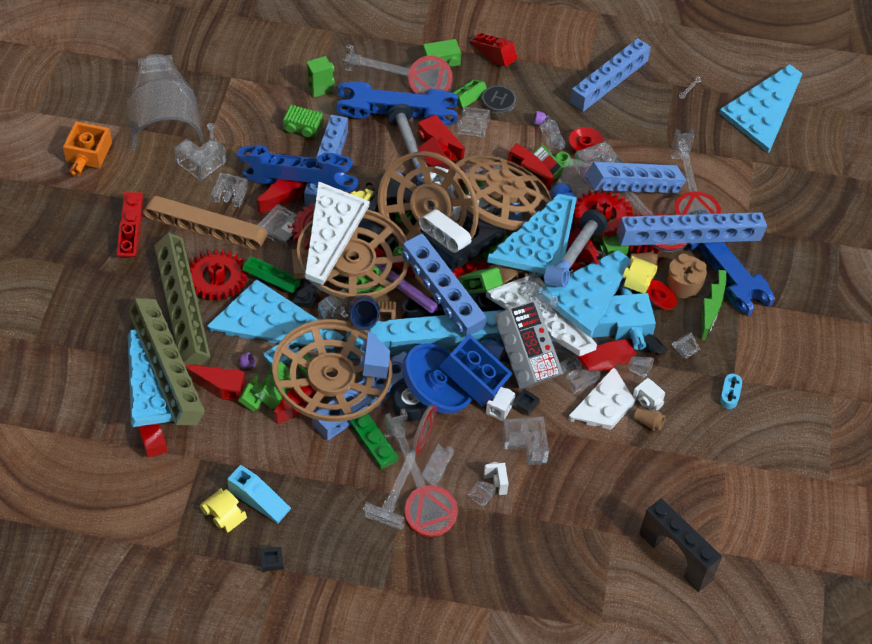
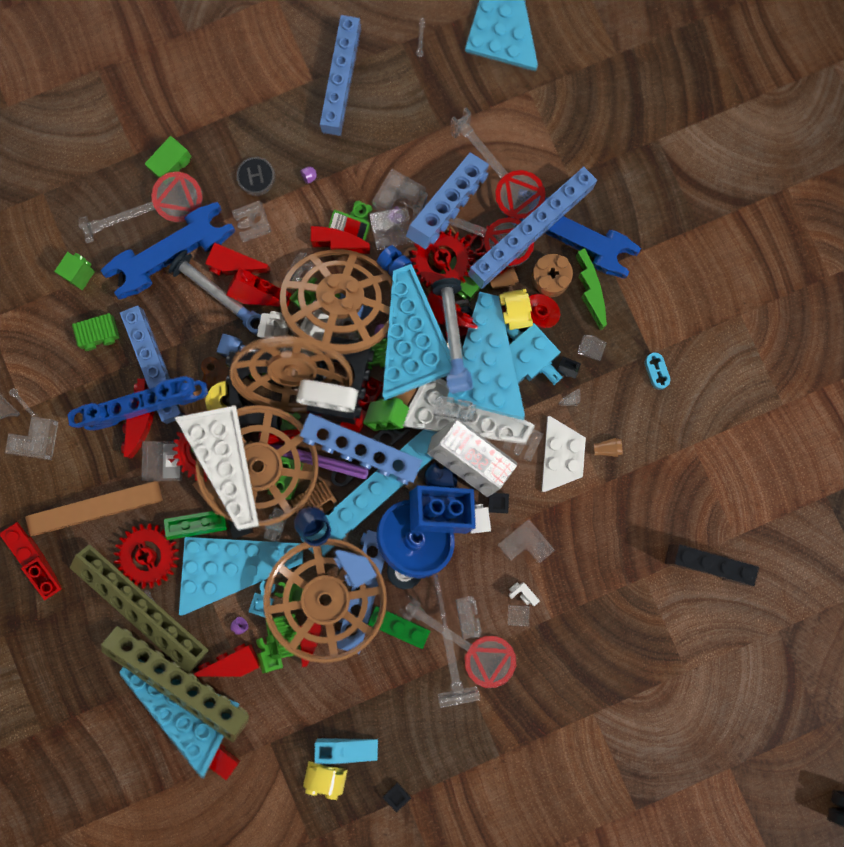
camera: 30 degrees left, 30 degrees up
(223, 184) = (77, 456): clear brick -> none
(470, 92) = (222, 186): bright green slope -> none
(497, 49) = (211, 115): red slope -> none
(551, 134) = (326, 181): clear hinge -> none
(584, 138) = (364, 166): red dish -> none
(607, 356) = (540, 409): red slope -> none
(649, 395) = (595, 425): white brick -> none

